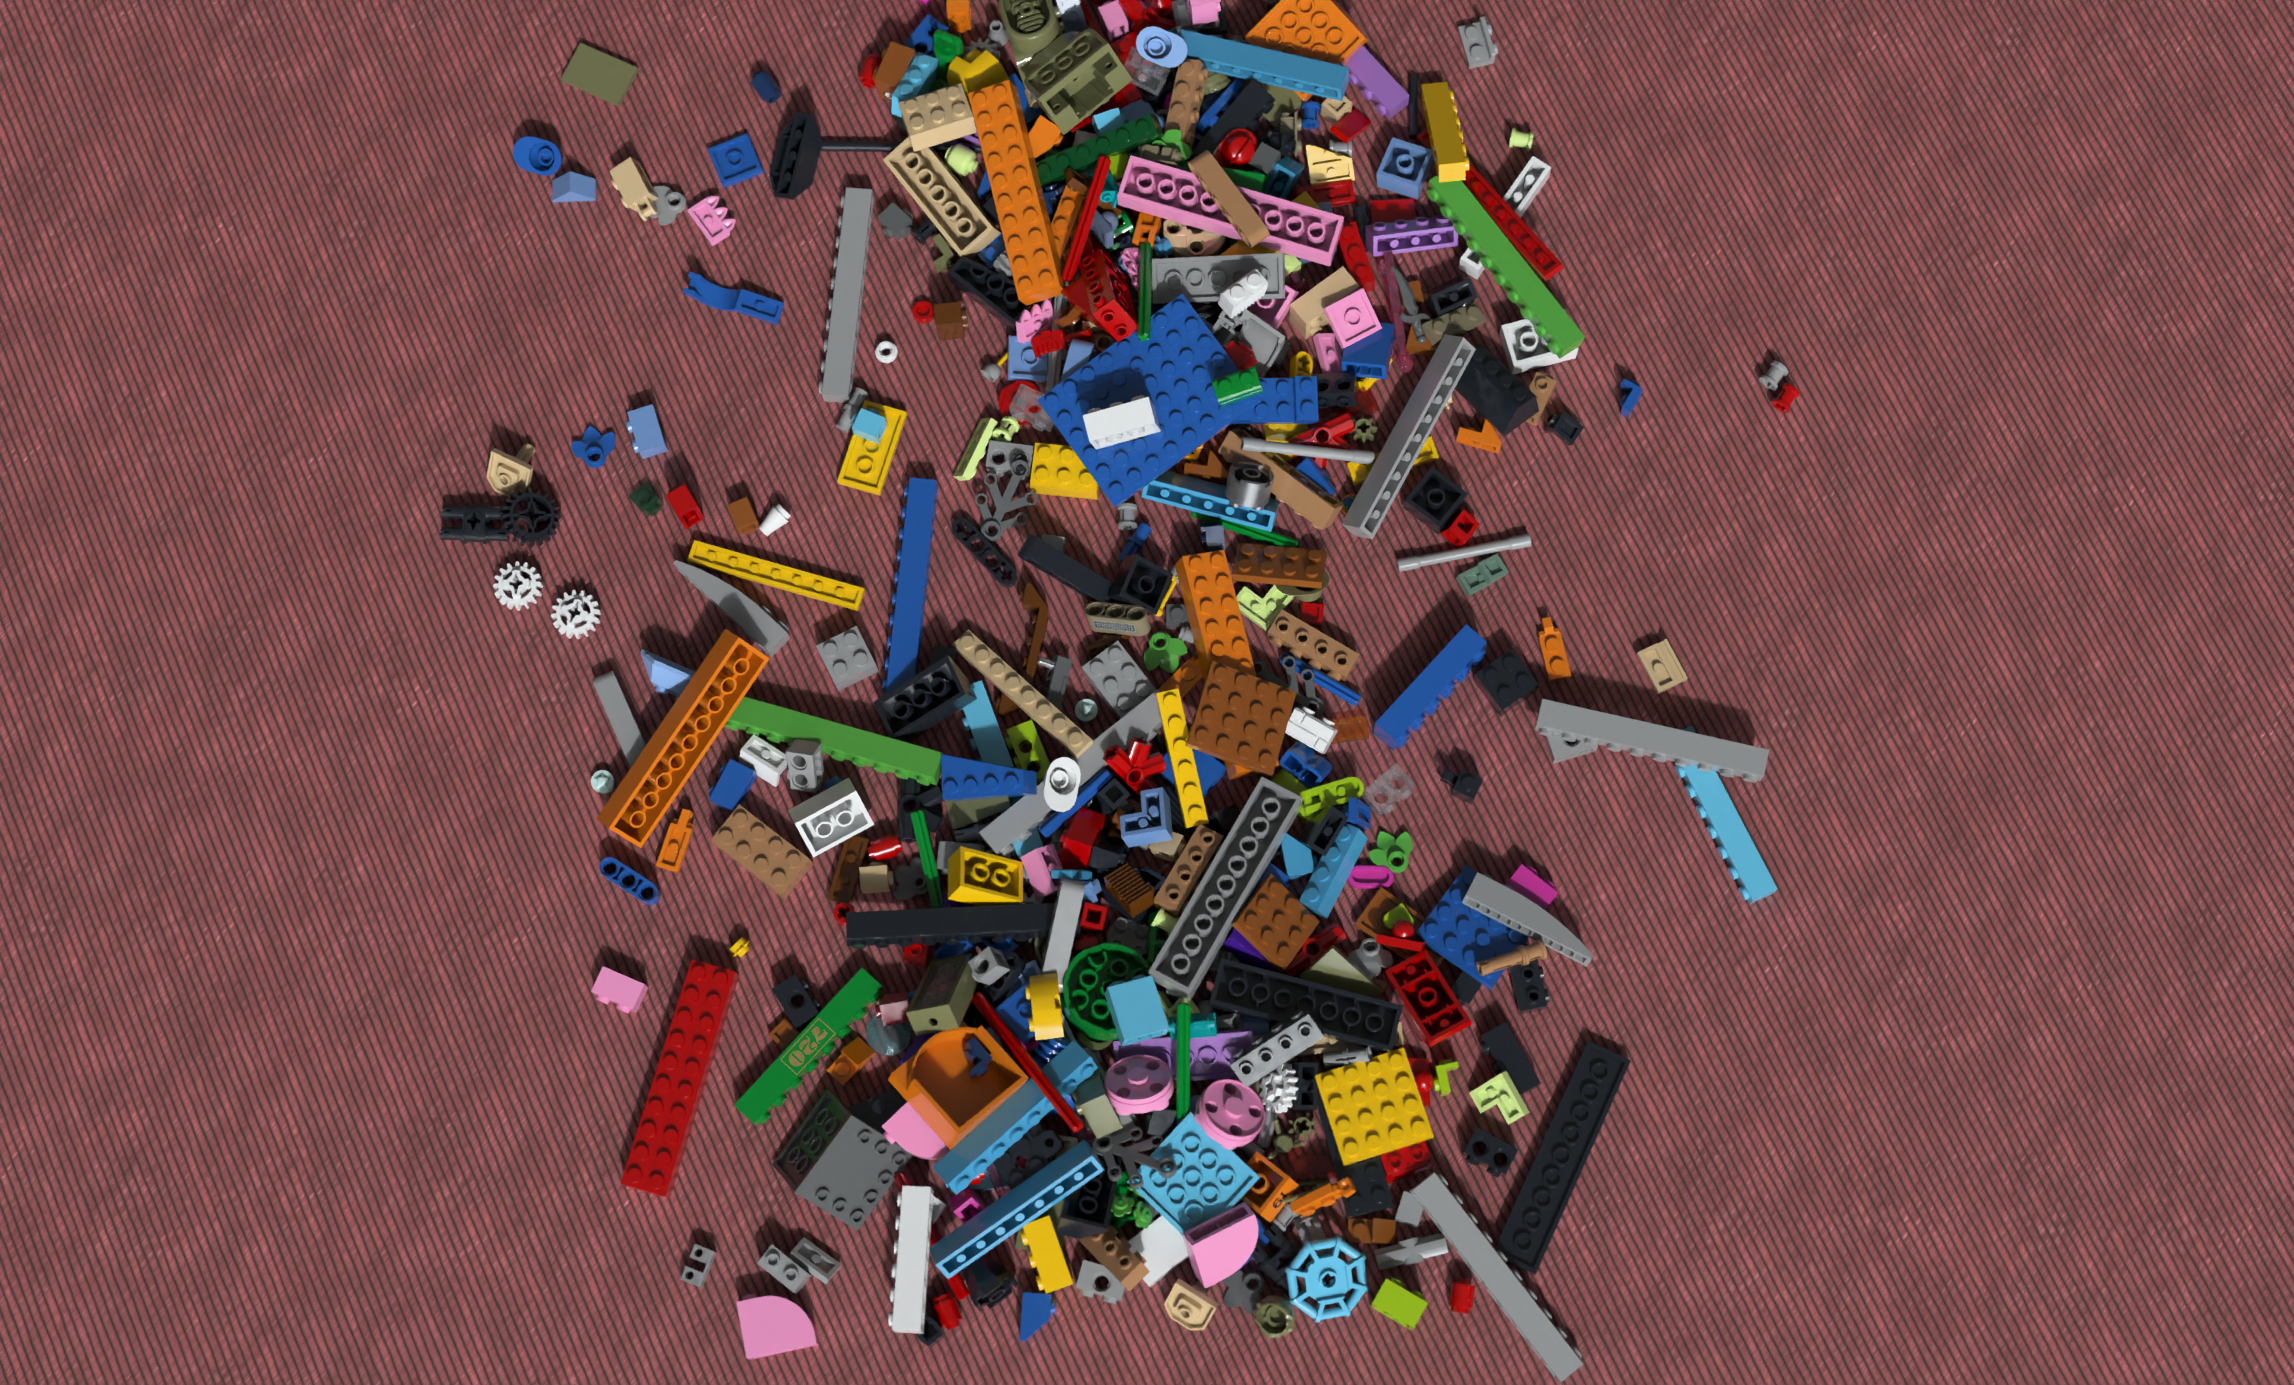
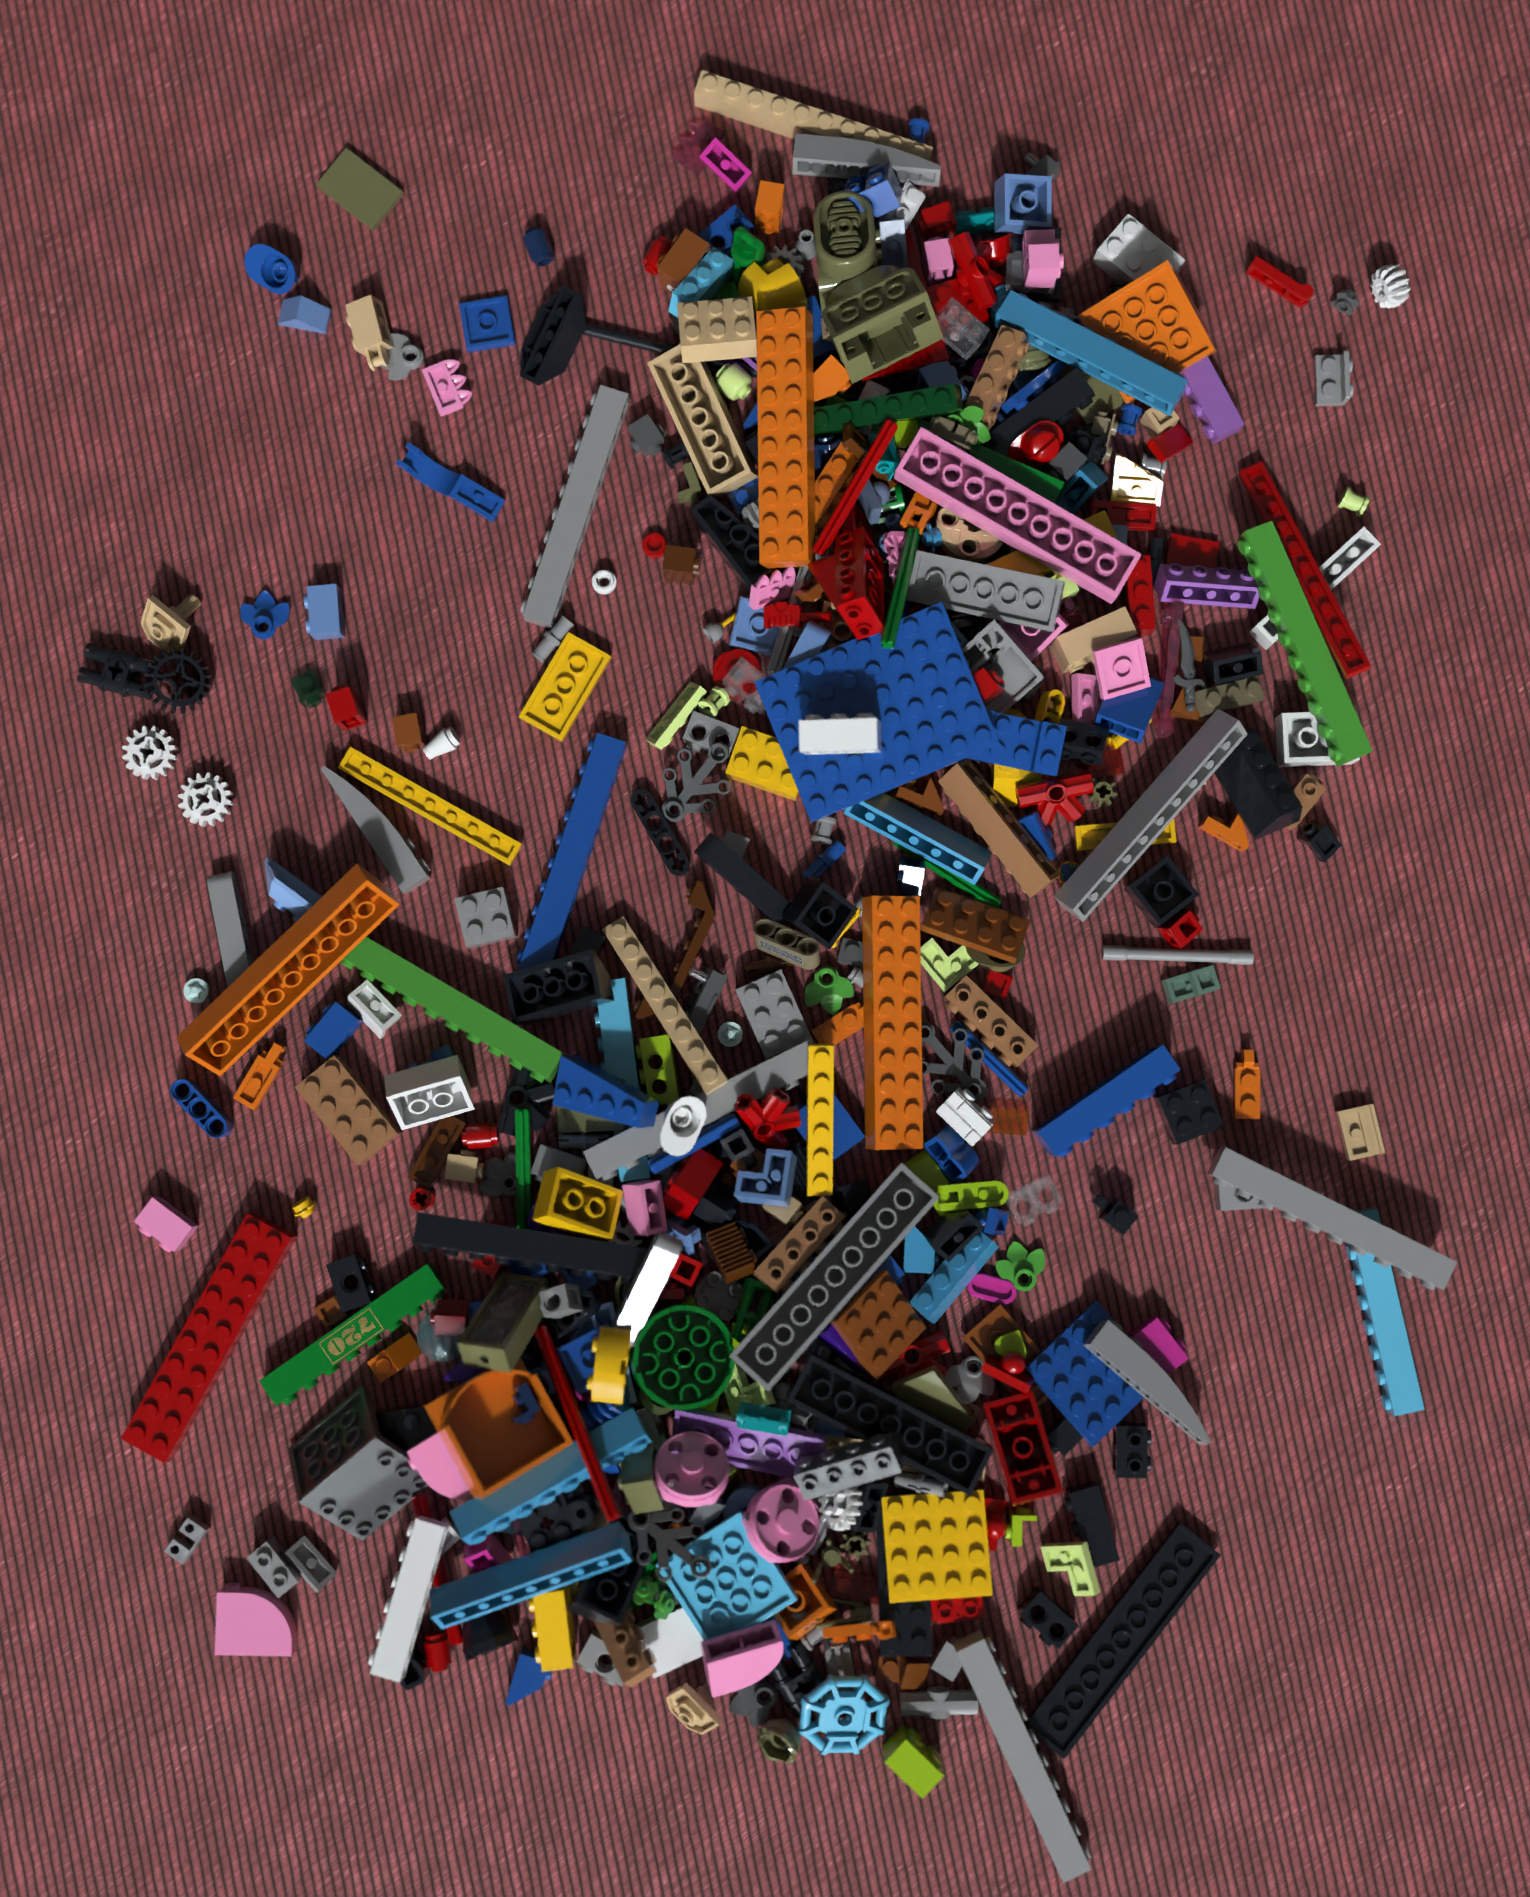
camera: 10 degrees right, 10 degrees up
(805, 765) = (414, 1029): light grey brick -> none
(869, 425) = (566, 663): medium azure brick -> none
(1071, 874) = (671, 1223): dark azure tile -> none
(1108, 120) = (905, 380): medium azure brick -> none
(1136, 1010) = (707, 1391): medium azure brick -> none
(1161, 47) = (984, 306): light blue piece -> none
(1164, 921) = (761, 1296): yellowish green bush -> none
(1183, 1060) = (744, 1456): green axle -> none
(1228, 198) = (1018, 504): medium nougat beam -> none
(1237, 386) = (978, 725): green brick -> none
(1241, 719) = (893, 1092): dark orange plate -> none
(1243, 293) = (1009, 618): white brick -> none
(1248, 485) = (963, 832): flat silver brick -> none
(1261, 445) = (986, 790): light grey piece -> none
(1404, 168) = (1218, 506): medium blue brick -> none
(1413, 112) = (1243, 435): black bar -> none
(1444, 132) = (1273, 477): yellow brick -> none
(1461, 1296) = (980, 1762): red brick -> none
(1521, 955) = (1133, 1420): medium nougat pin -> none
(1632, 395) = (1400, 827): blue bracket -> none

